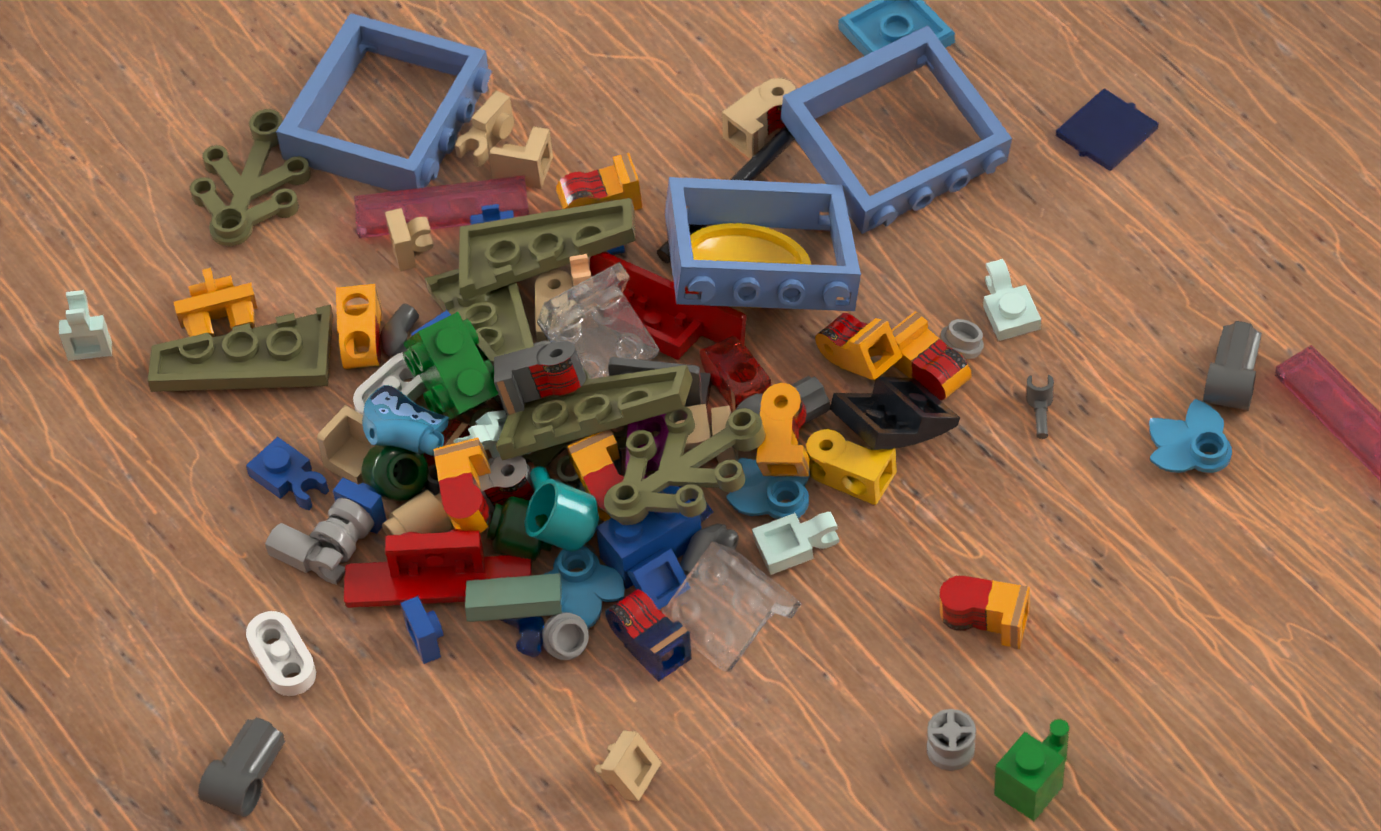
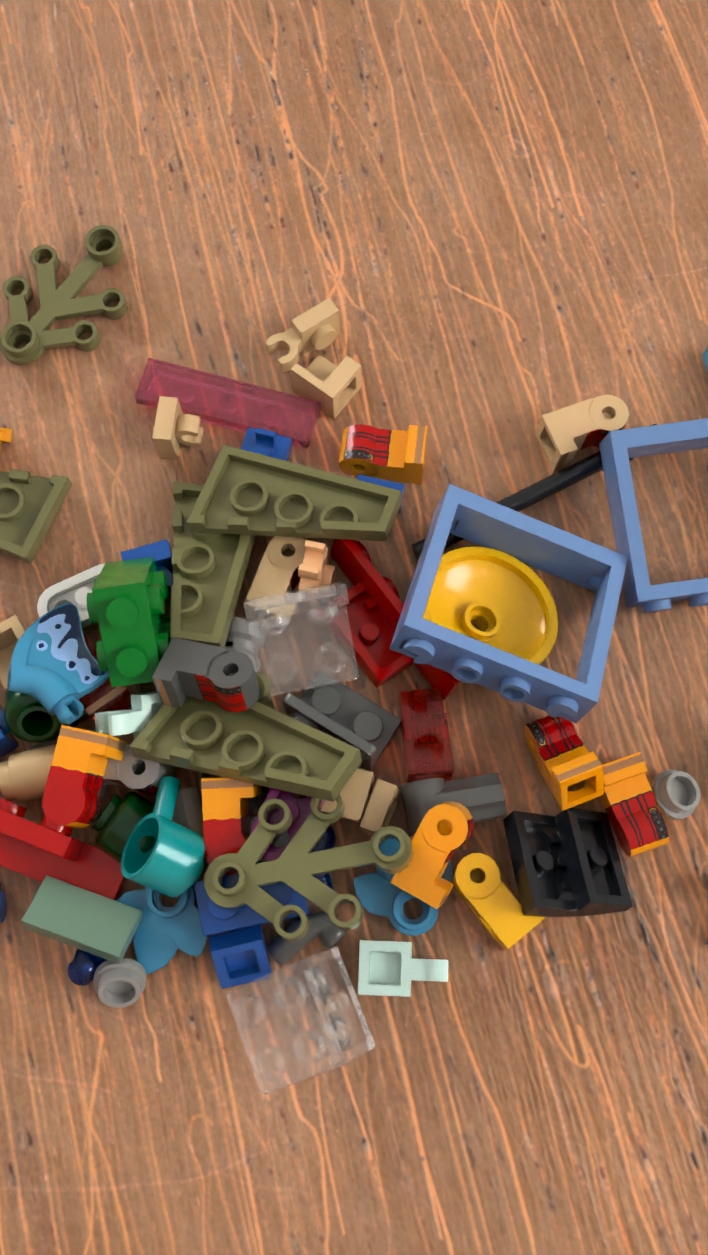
camera: 20 degrees right, 20 degrees up
(359, 326) = (83, 514): light orange leg -> none
(361, 34) = (184, 216): medium blue window -> none
(396, 329) = (118, 530): dark grey arm -> none
(629, 766) = (110, 1181): tan tile -> none
(649, 634) = (202, 1016): clear blue leg -> none
(986, 606) = (550, 1141): leg -> none

